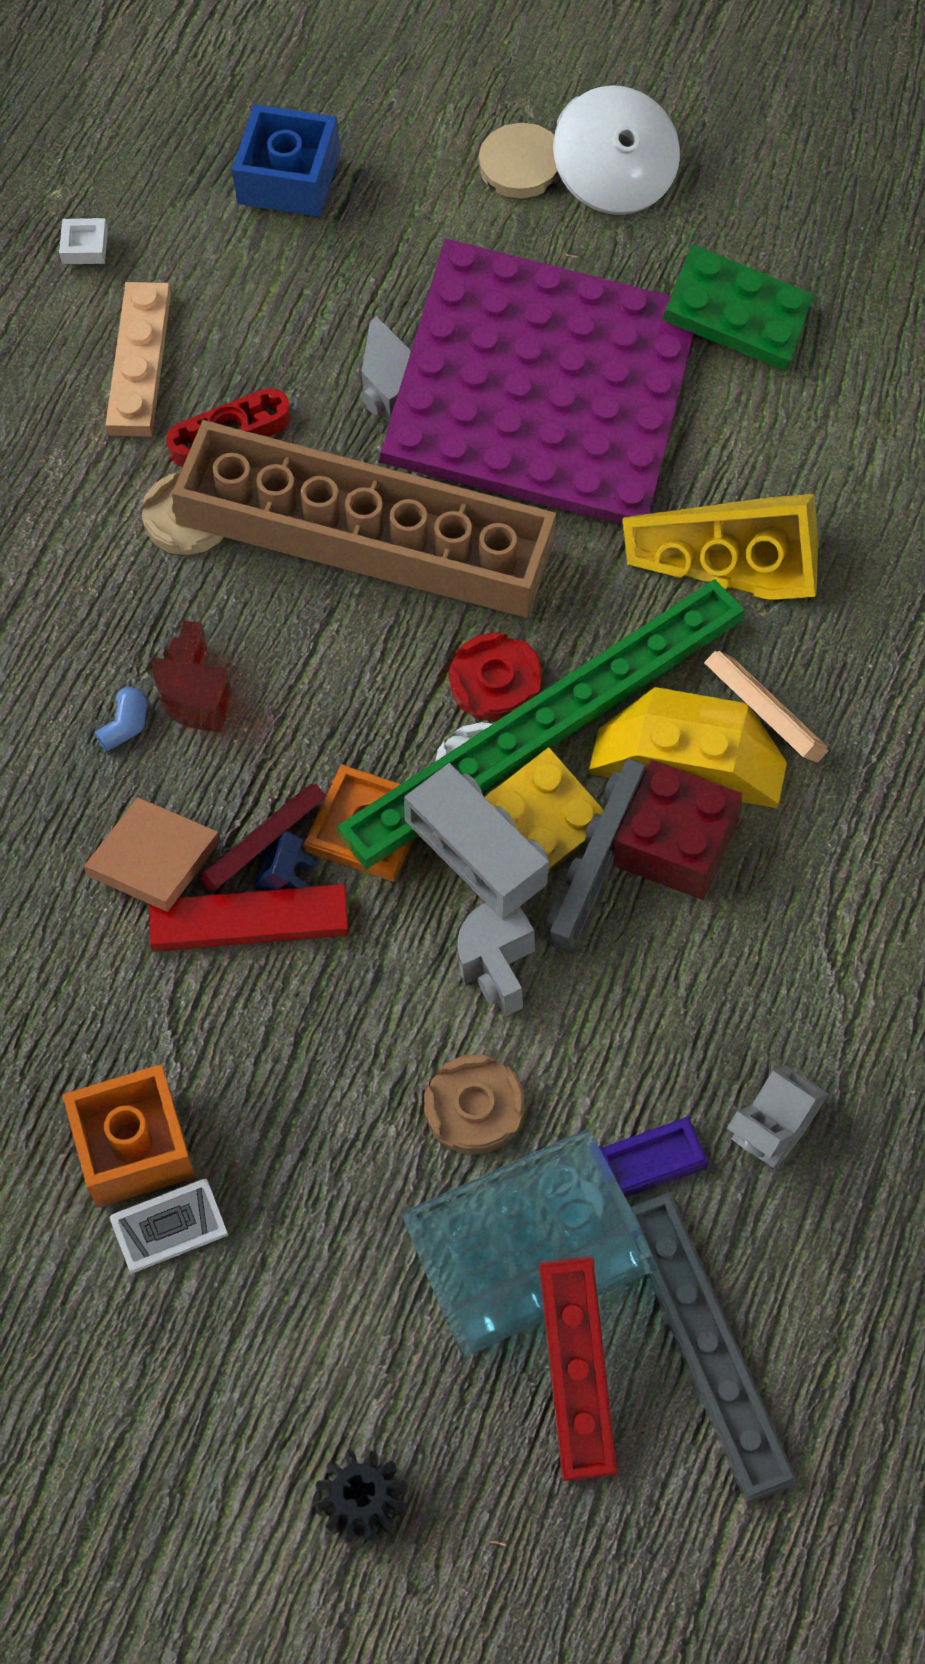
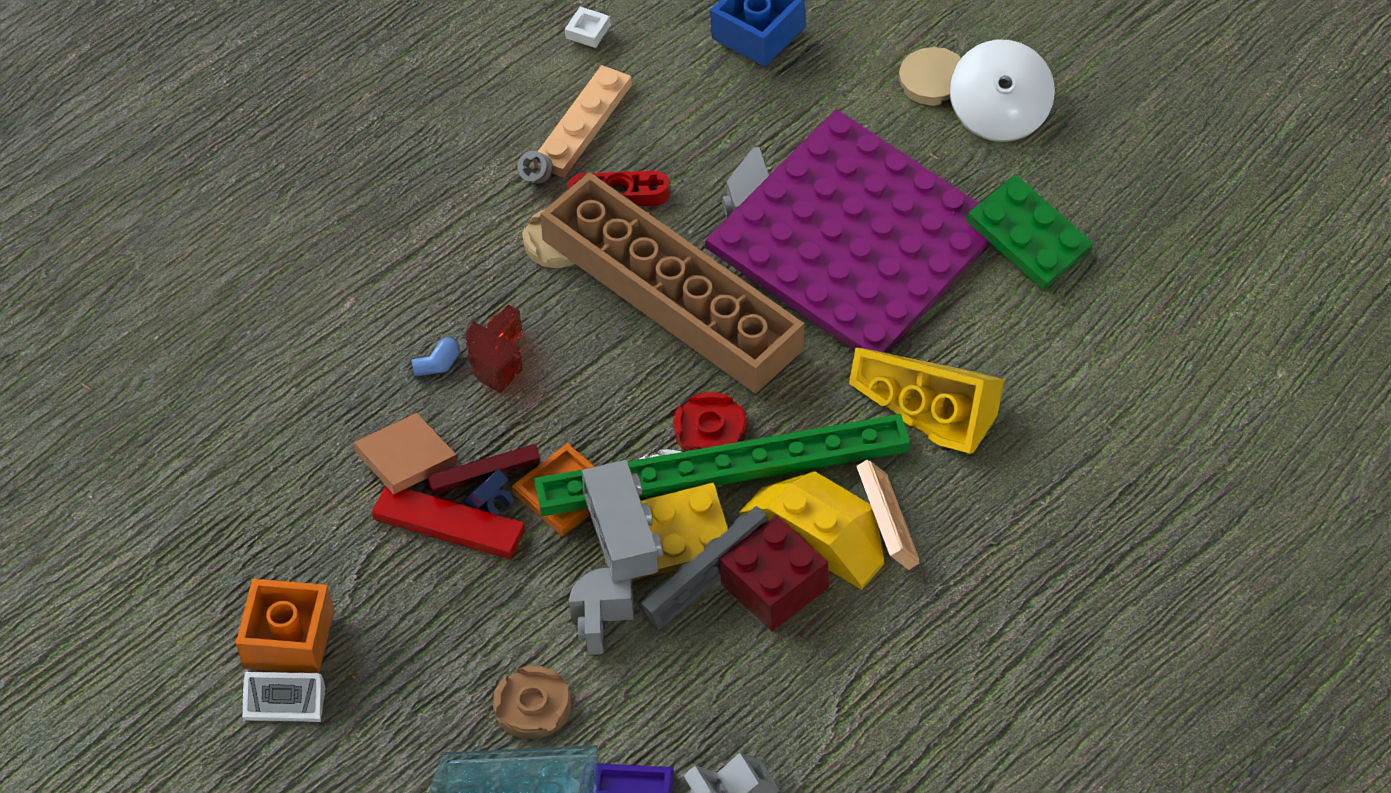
camera: 25 degrees right, 10 degrees down
(110, 423) = (546, 167): none -> light grey bush

